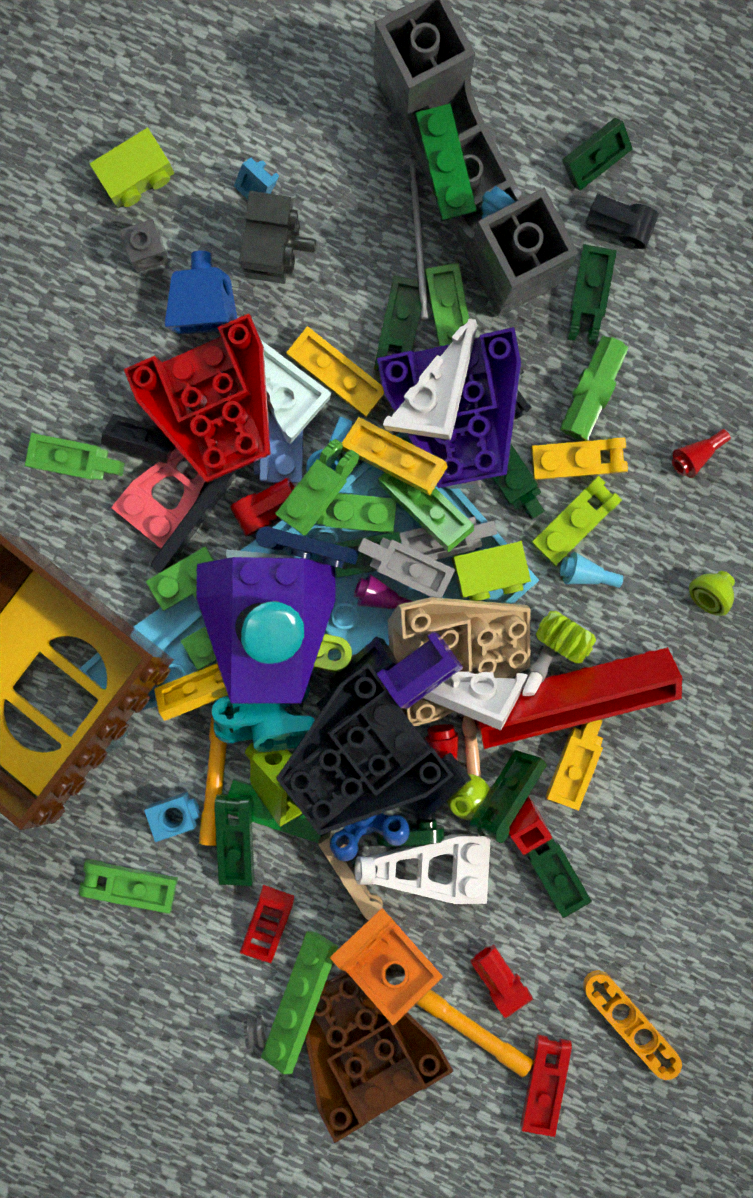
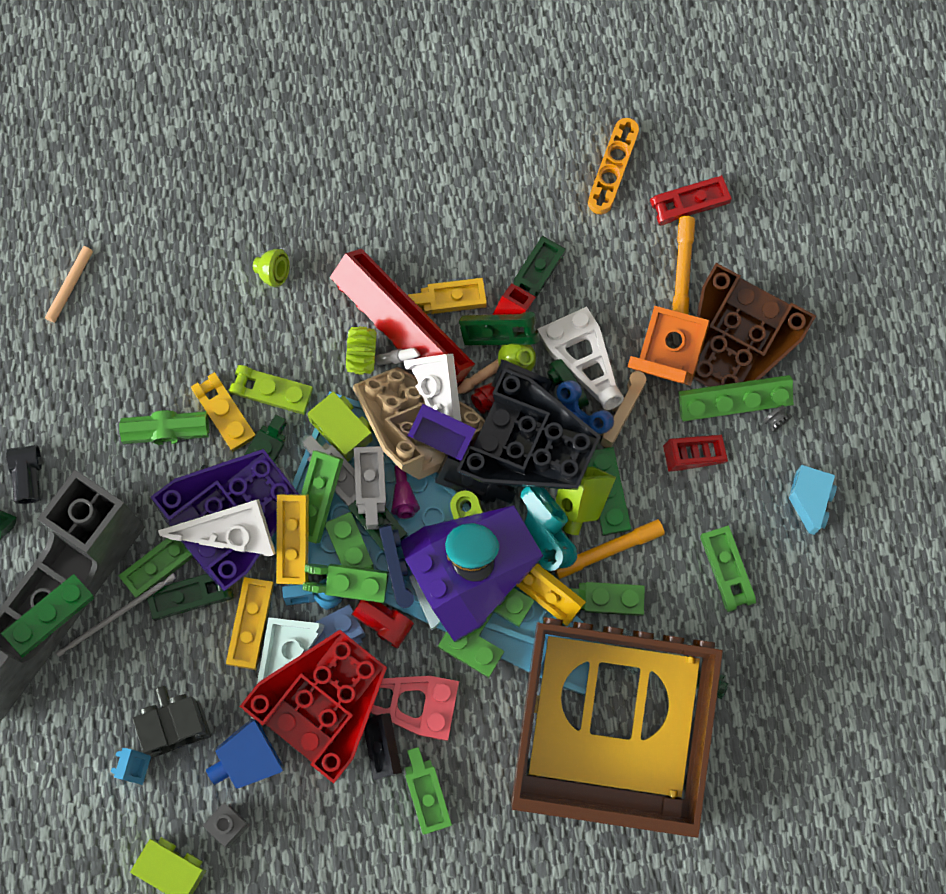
camera: 120 degrees left, 15 degrees down
(153, 1017) = (810, 496): none -> medium azure slope
(162, 826) = (668, 562): dark azure brick -> none
(164, 750) = (612, 598): none -> bright green hinge
(192, 521) = (417, 668): black tile -> none
(234, 840) = (646, 506): dark green plate -> none
(495, 201) = (63, 560): dark azure plate -> none
(504, 985) = (636, 265): red piece -> none
(580, 570) = (306, 368): medium azure cone -> none
(591, 290) = (94, 465): dark green hinge -> none
(691, 458) = (180, 332): red cone -> none

